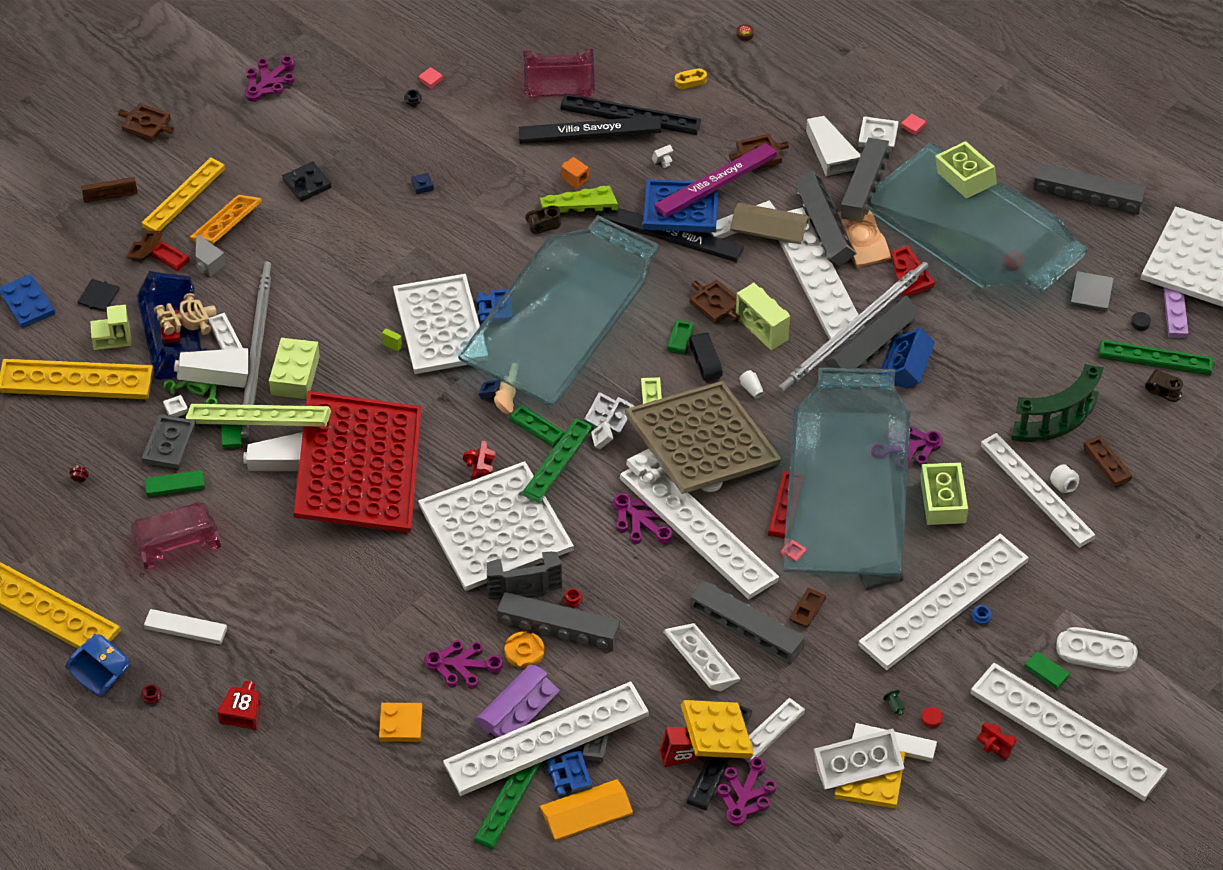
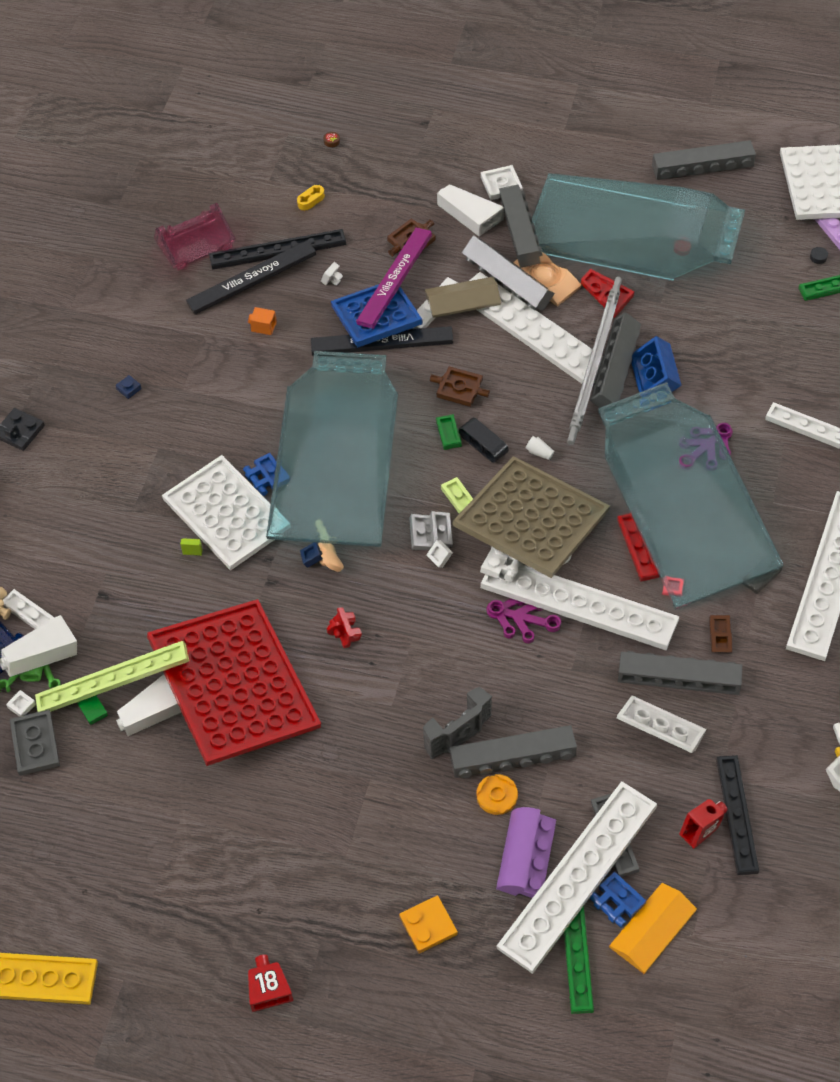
camera: 25 degrees left, 5 degrees up
(98, 664) = (101, 1013): blue piece -> none
(148, 690) = (168, 1009): dark red plate -> none
(174, 483) = (64, 782): green tile -> none
(174, 530) = (94, 833): clear pink windscreen -> none
(185, 626) = (160, 926): white tile -> none
(257, 340) = (62, 603): light grey axle -> none
(294, 368) = (115, 615): yellowish green brick -> none
(412, 97) = (72, 311): black plate -> none
(430, 77) = (77, 287): coral tile -> none
(461, 662) = (448, 836): magenta plant -> none
(493, 522) = (396, 684): white plate -> none
(536, 426) = (373, 570): green tile -> none
(545, 219) = (261, 374): dark brown piece -> none
(557, 460) = (415, 596): green tile -> none
(572, 593) = (510, 717): red plate -> none
(579, 200) = (283, 344): lime wing -> none
(717, 729) = (726, 791): yellow plate -> none
(746, 793) = (783, 840): magenta plant -> none
(763, 316) = (513, 382): yellowish green brick -> none
(774, 726) = (764, 767): white tile -> none
(913, 124) = (524, 163): coral tile -> none
(944, 493) = (769, 476): yellowish green brick -> none
(966, 169) = (605, 182): yellowish green brick -> none
(1074, 403) = (814, 363): dark green fence -> none
(1092, 291) = (764, 245): light grey slope -> none

